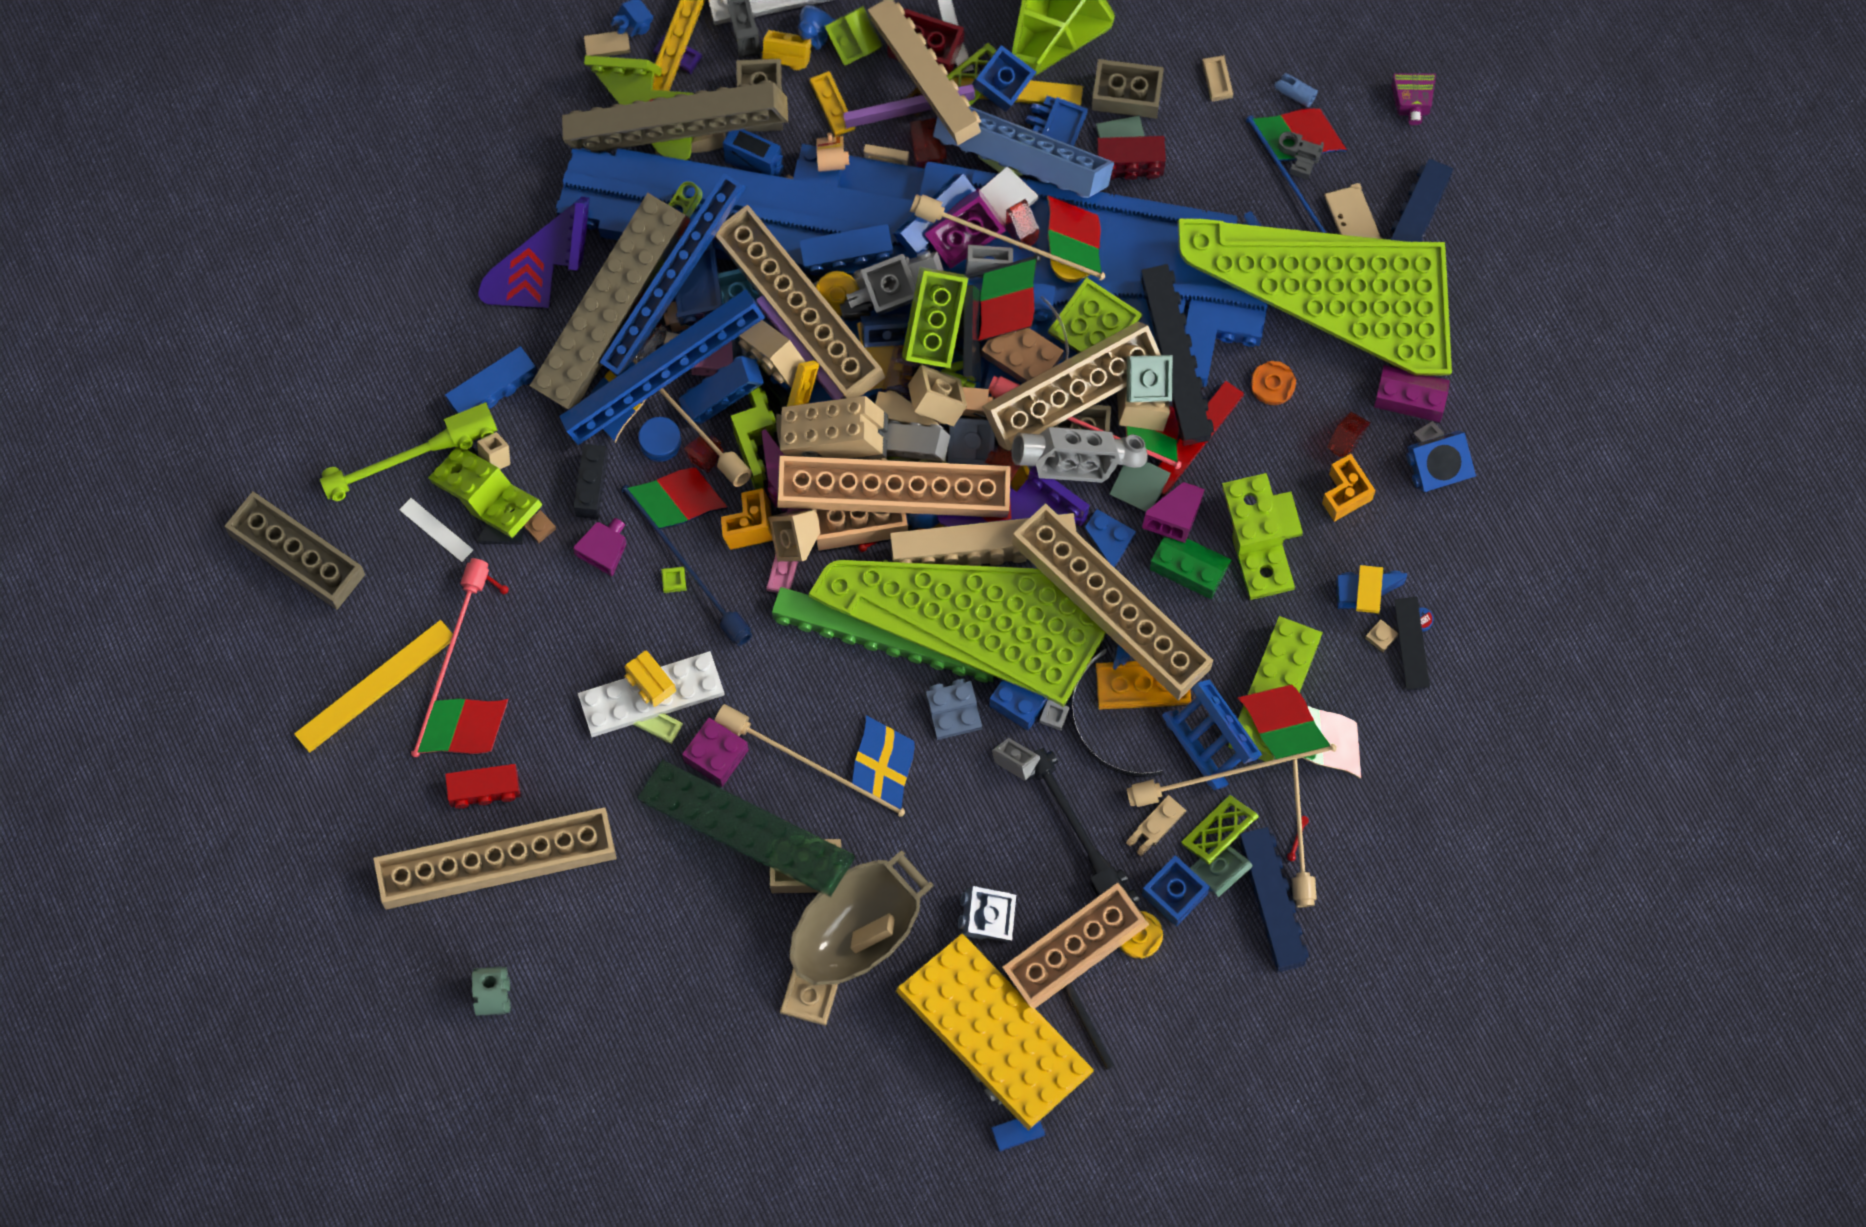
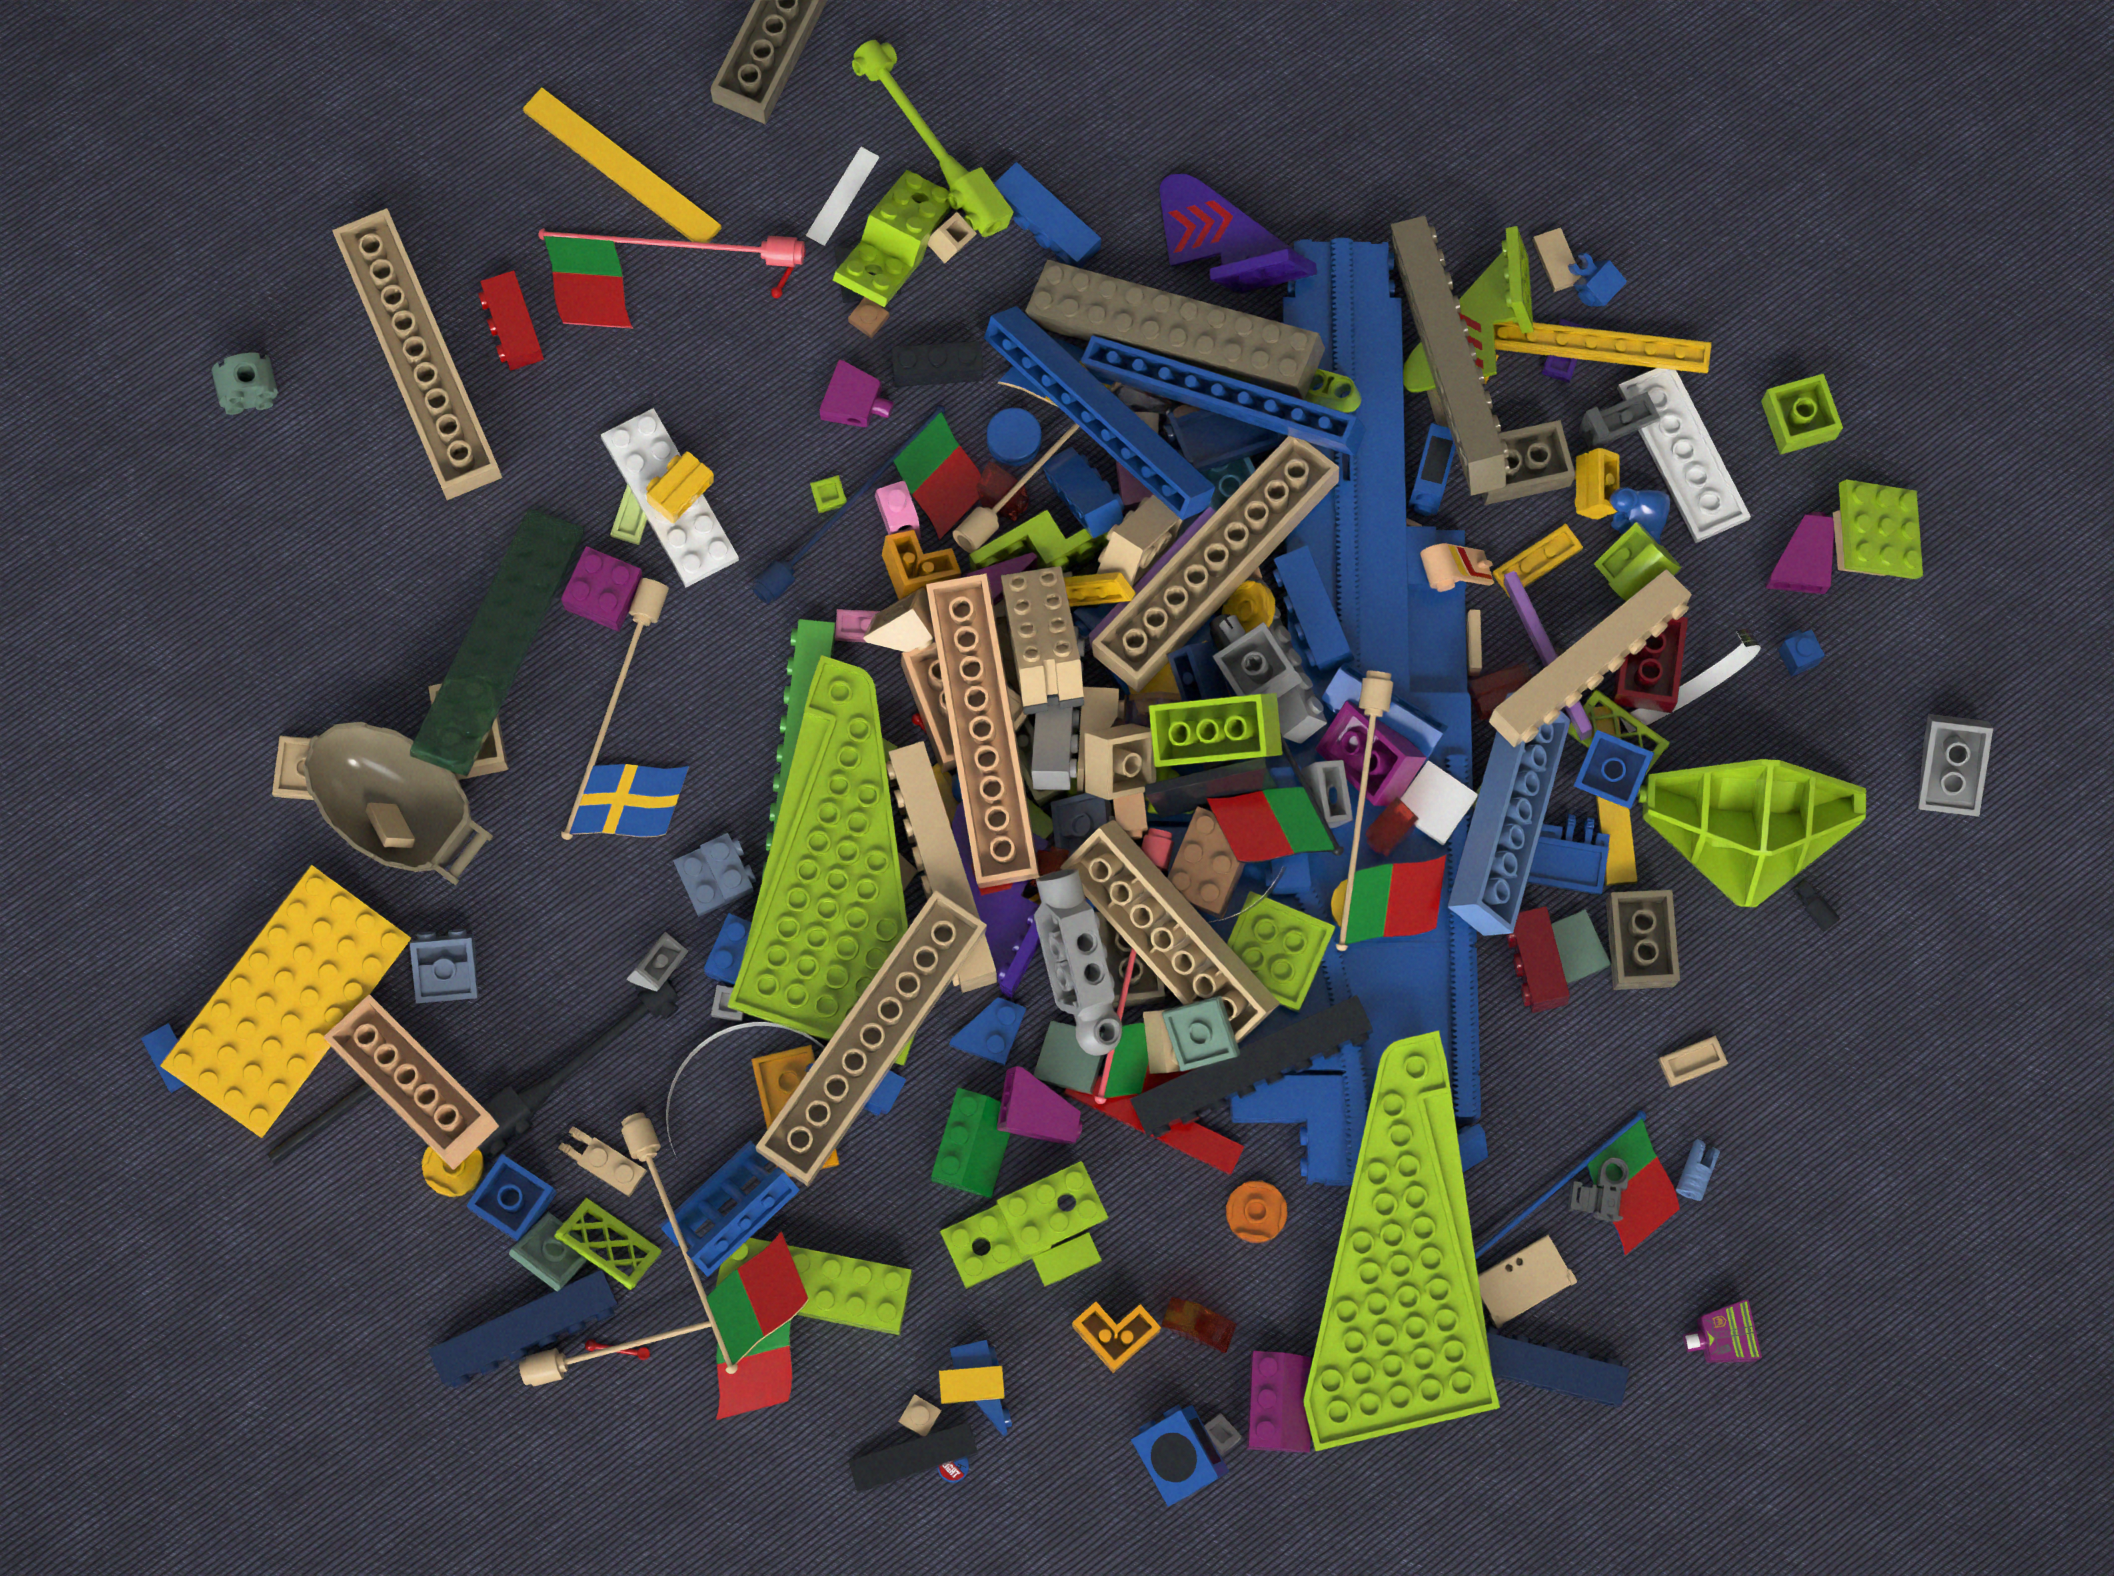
camera: 75 degrees right, 5 degrees up
(701, 529) = (897, 508): none -> bright pink torso

